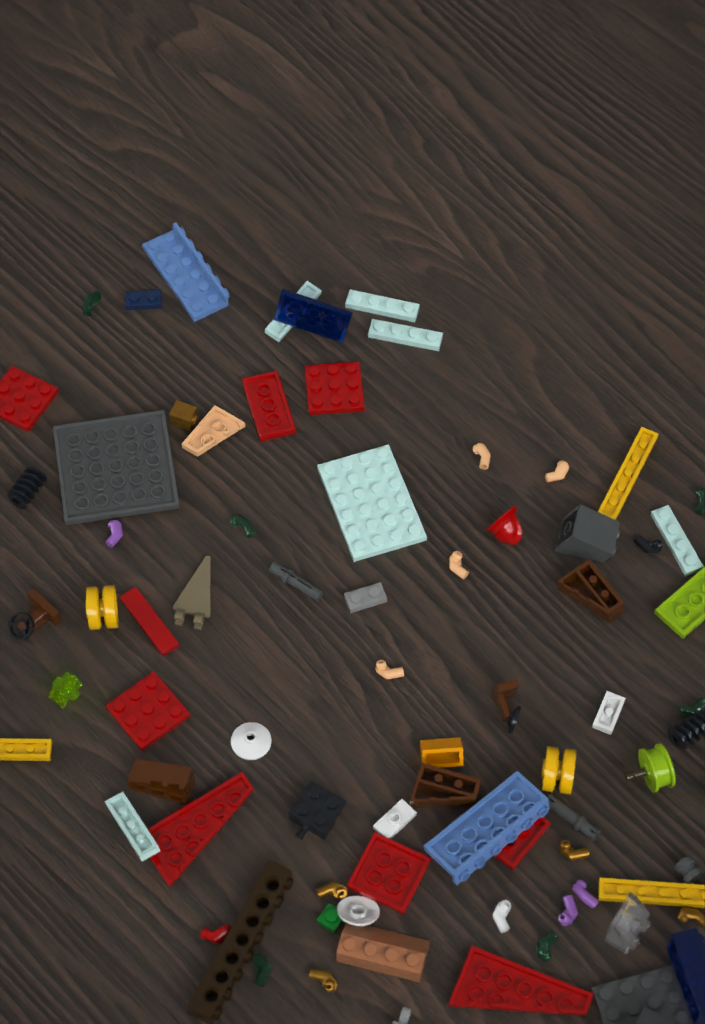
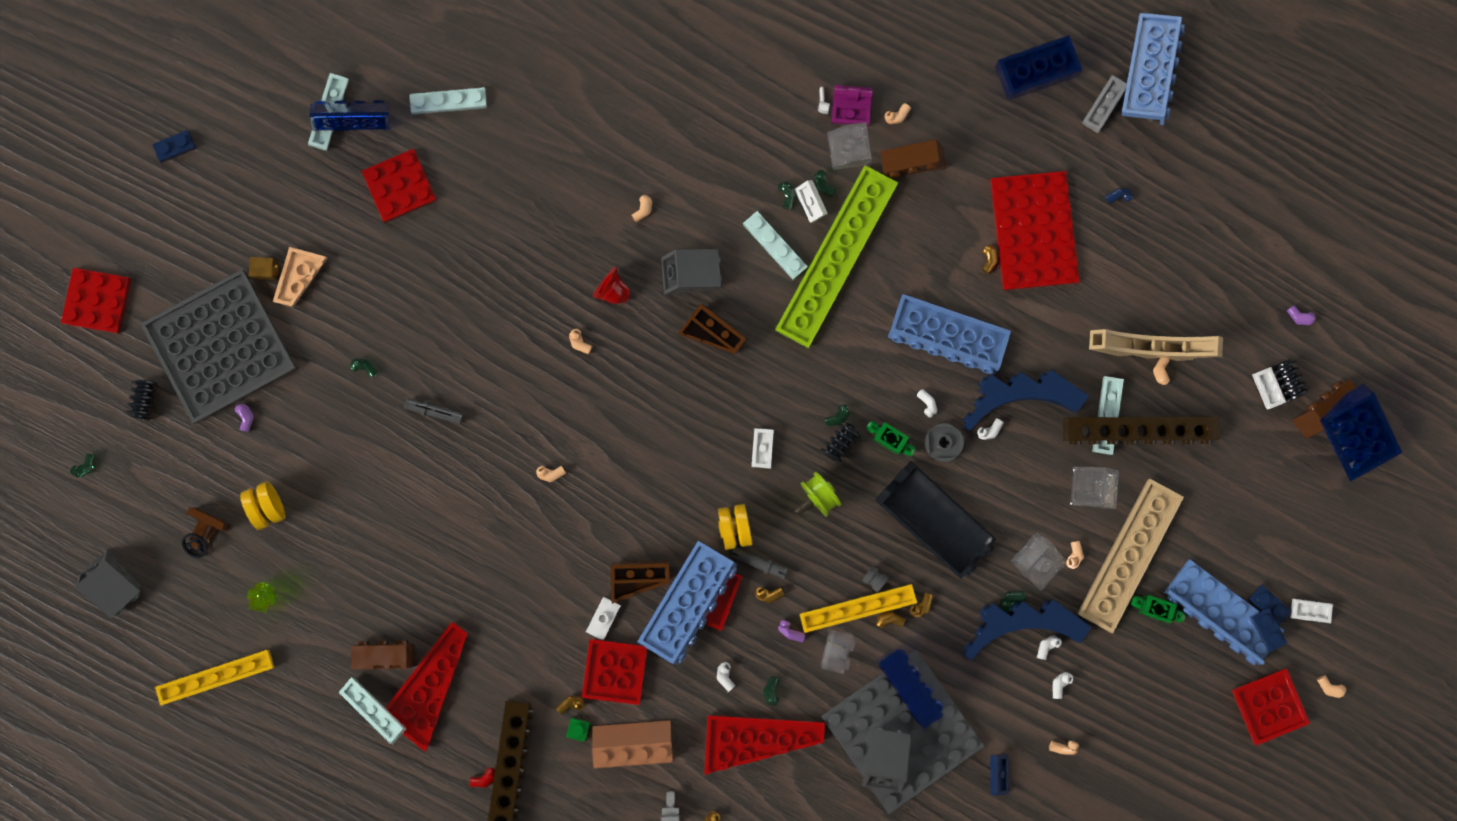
camera: 20 degrees left, 25 degrees up
(89, 302) = (121, 168): clear green arm -> none
(147, 711) = (344, 588): red plate -> none
(149, 621) = (312, 498): red tile -> none
(187, 273) = (205, 101): medium blue bracket -> none
(196, 596) = (346, 457): dark tan flag -> none
(254, 748) = (458, 587): white dish -> none
(263, 967) = (536, 797): clear green arm -> none
(268, 406) = (341, 227): red tile -> none
(316, 811) = (531, 635): black plate -> none
(325, 977) = (592, 786): pearl gold arm -> none
(358, 910) = (599, 710): white dish -> none
(365, 597) = (504, 404): light grey plate -> none
(371, 503) = (476, 301): light aqua plate -> none
(382, 305) = (414, 74): light aqua plate -> none
(442, 752) = (624, 540): light orange brick -> none
(482, 450) = (568, 212): light nougat arm -> none
(500, 695) = (661, 466): reddish brown piece -> none
(570, 912) = (782, 654): medium lavender arm -> none
(628, 473) = (710, 190): yellow plate -> none
(649, 547) = (750, 262): black arm -> none

